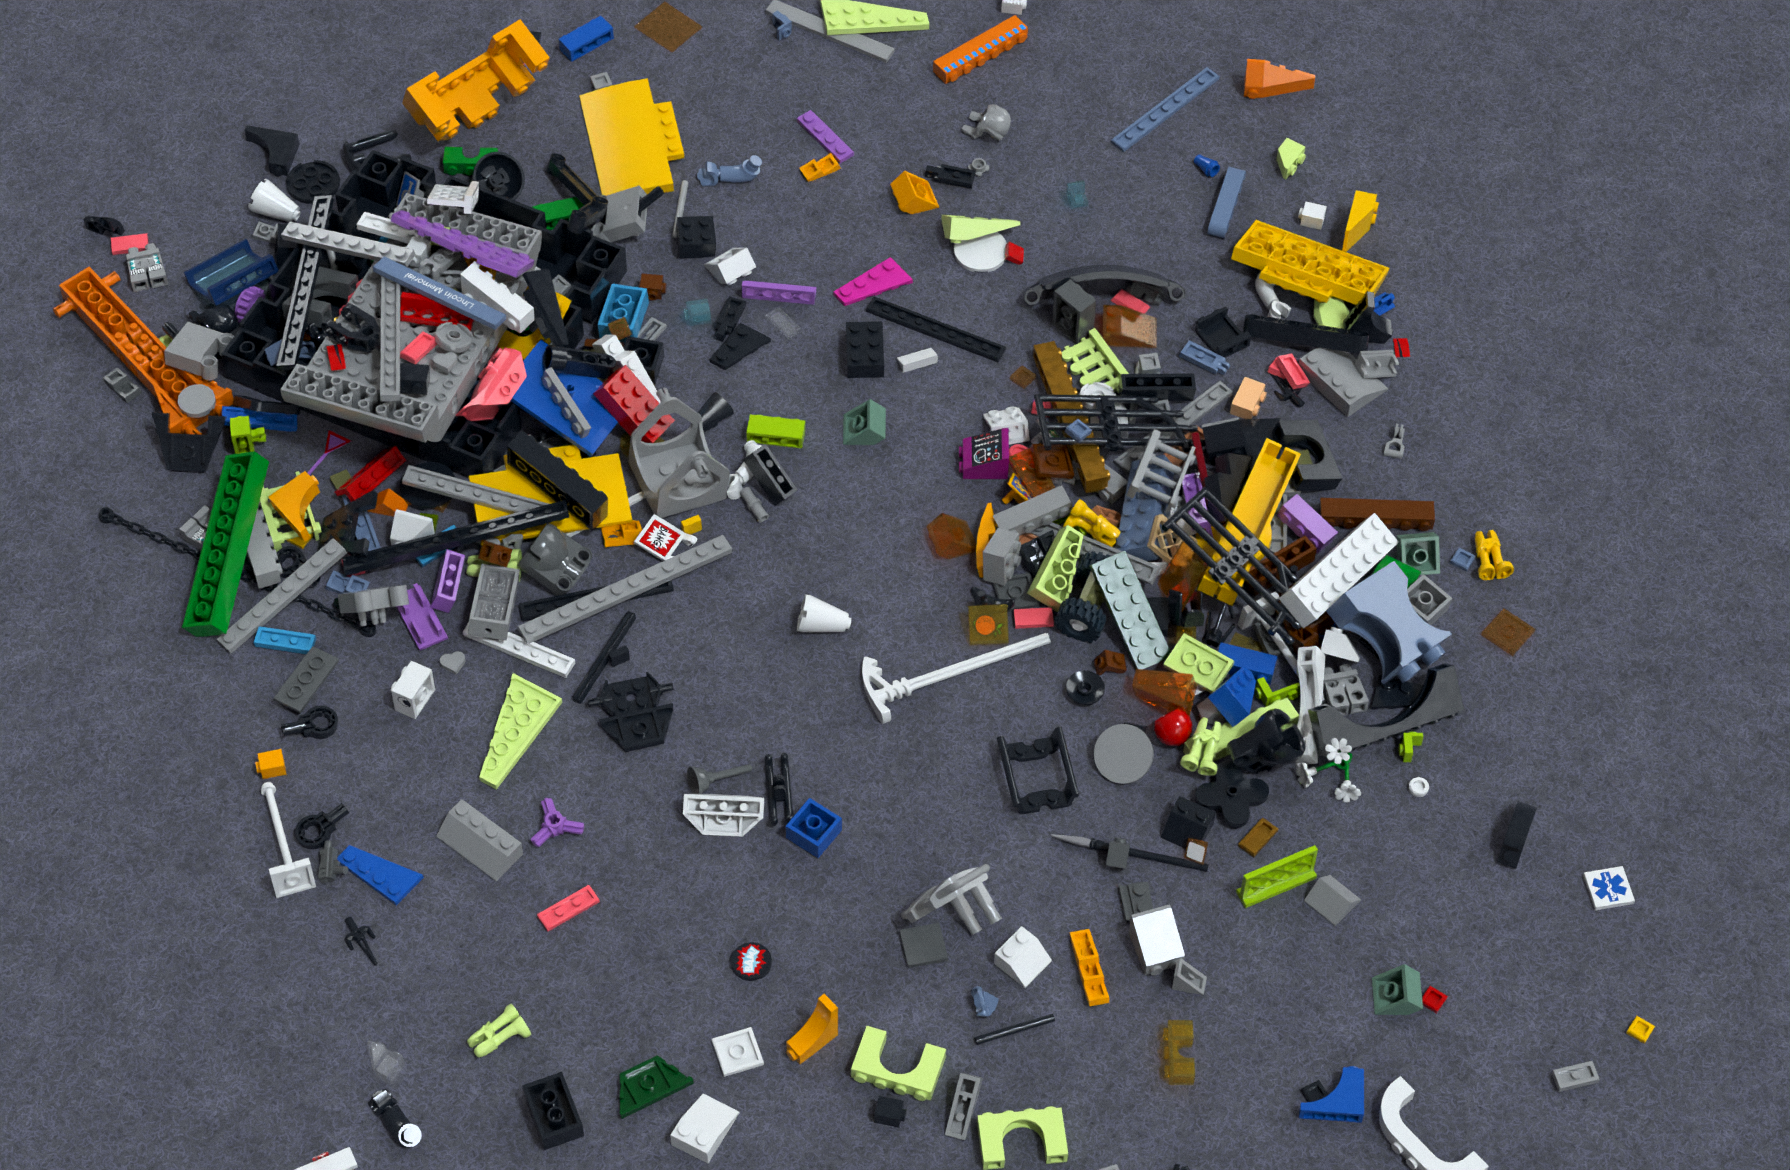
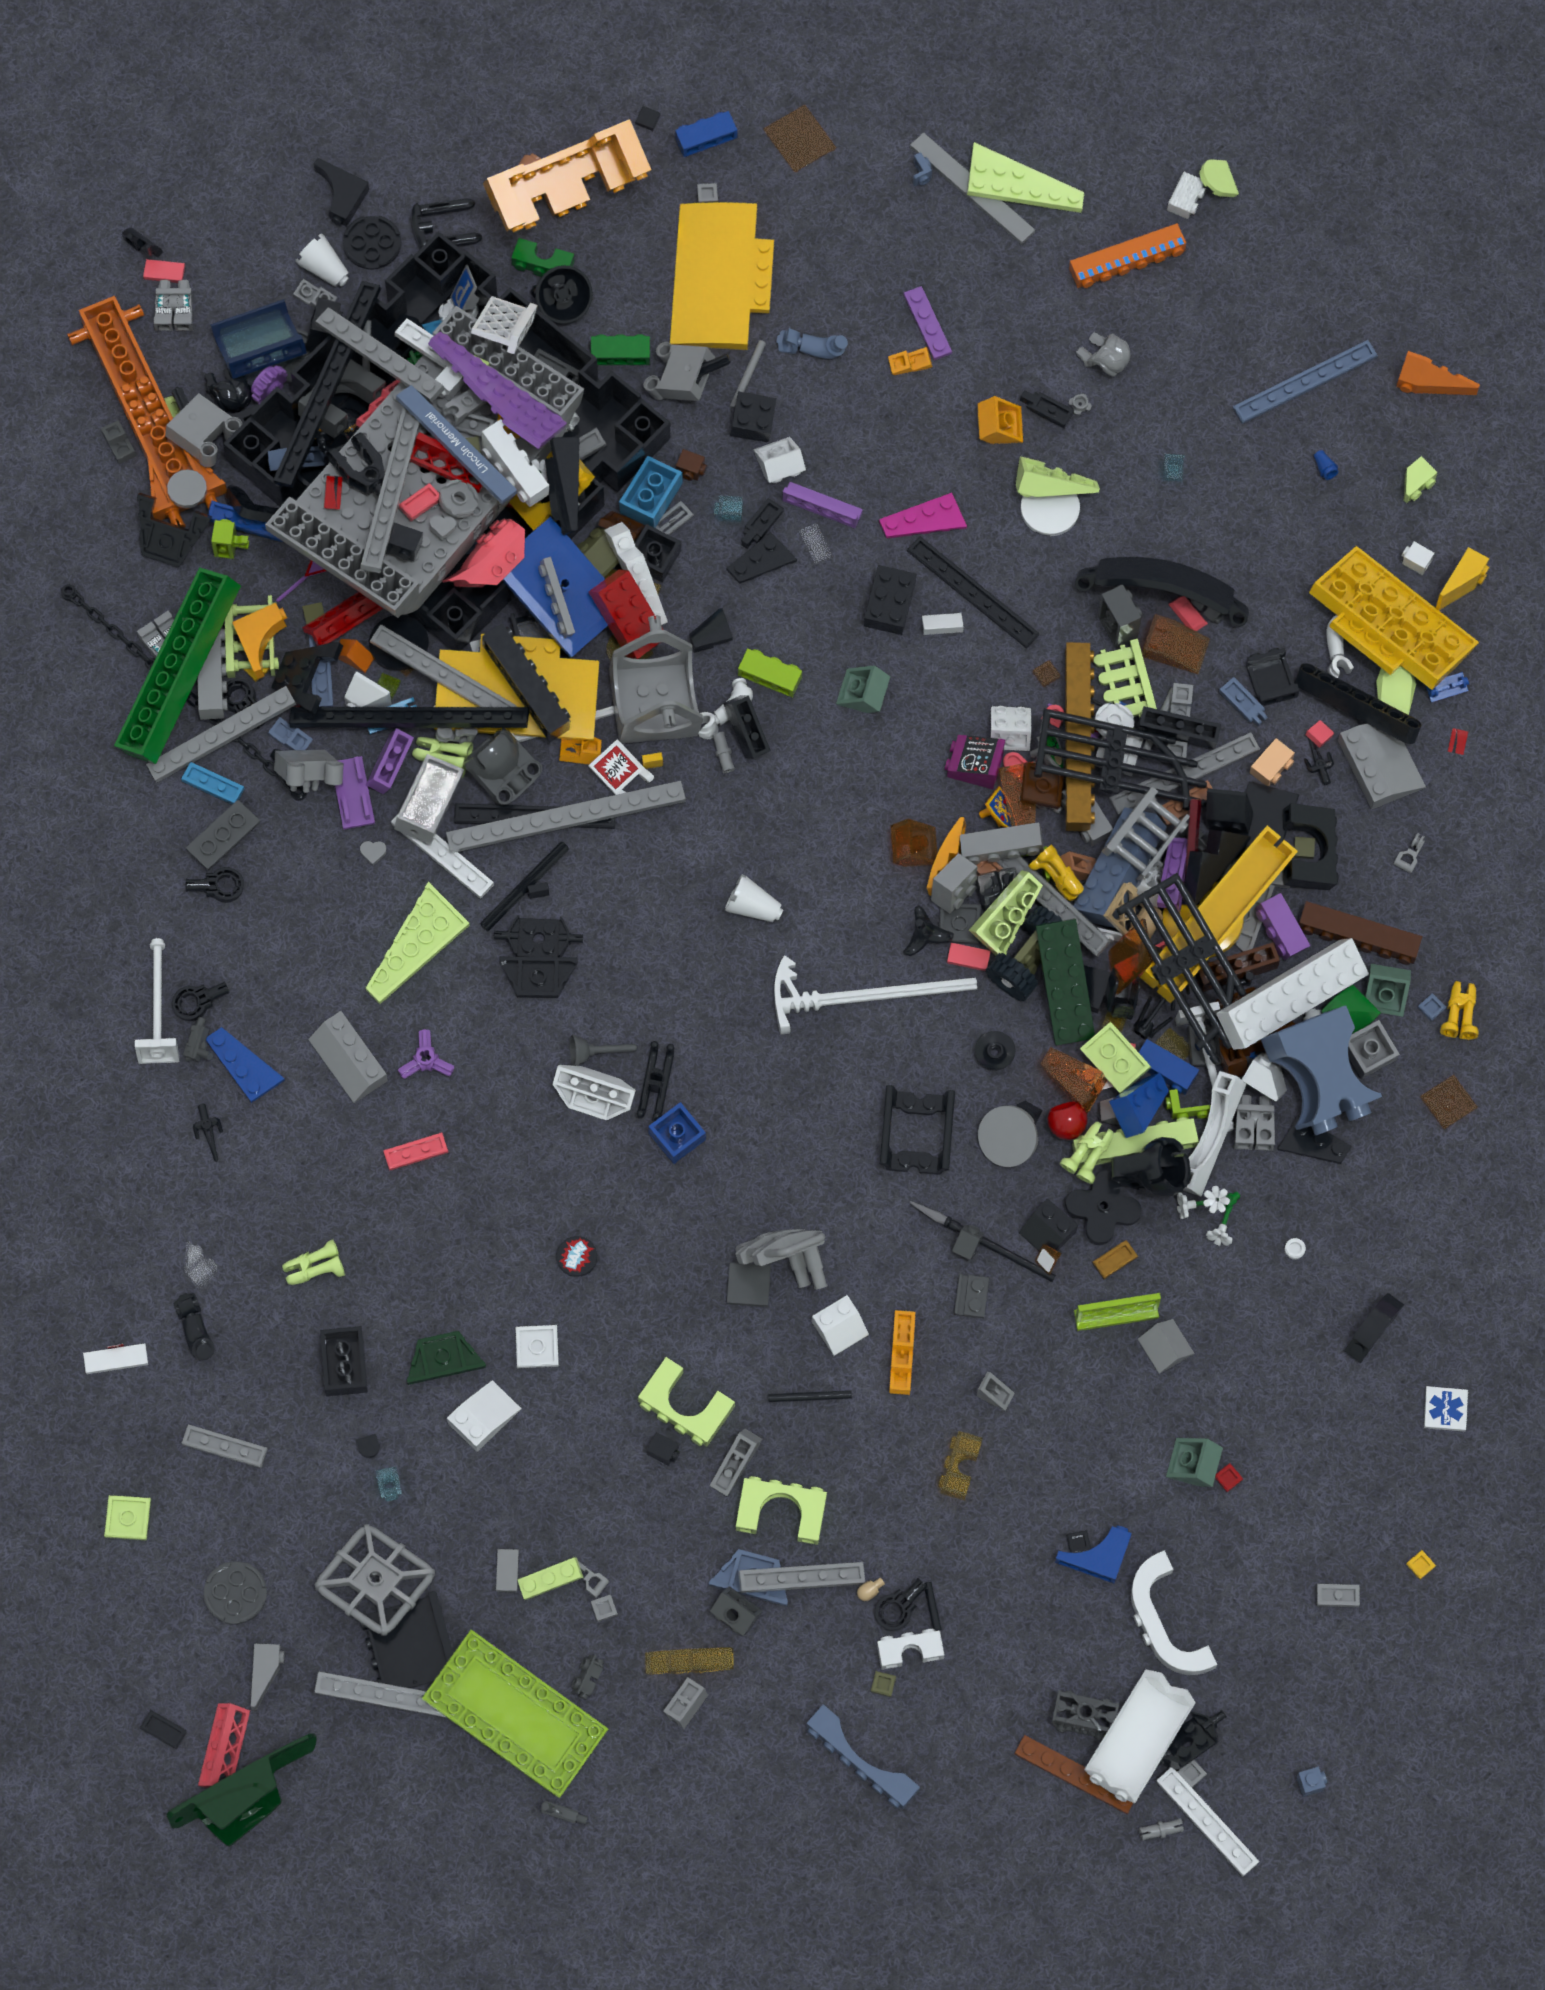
camera: 15 degrees right, 15 degrees up
(271, 764) = (166, 919): light orange brick -> none
(412, 689) = (323, 876): white brick -> none
(495, 553) = (443, 747): reddish brown brick -> none
(578, 362) = (576, 551): black beam -> none
(594, 205) = (648, 337): black piece -> none
(620, 328) = (640, 515): clear orange tile -> none
(816, 1032) = (613, 1351): light orange arch -> none
(984, 1002) = (789, 1361): sand blue piece -> none
(988, 624) = (919, 954): clear yellow tile -> none
(1014, 253) = (1083, 522): red tile -> none
(1078, 430) = (1075, 764): sand blue tile -> none
(1110, 661) = (1029, 1028): reddish brown bracket -> none
(1156, 939) = (975, 1345): slope -> none
(1226, 201) = (1330, 516): sand blue beam -> none
(1292, 371) = (1329, 743): coral tile -> none
(1366, 320) = (1427, 709): black arch -> none
(1377, 364) = (1421, 758): light grey hinge -> none
(1408, 741) = (1295, 1204): lime bracket -> none
(1437, 699) = (1342, 1163): black arch -> none

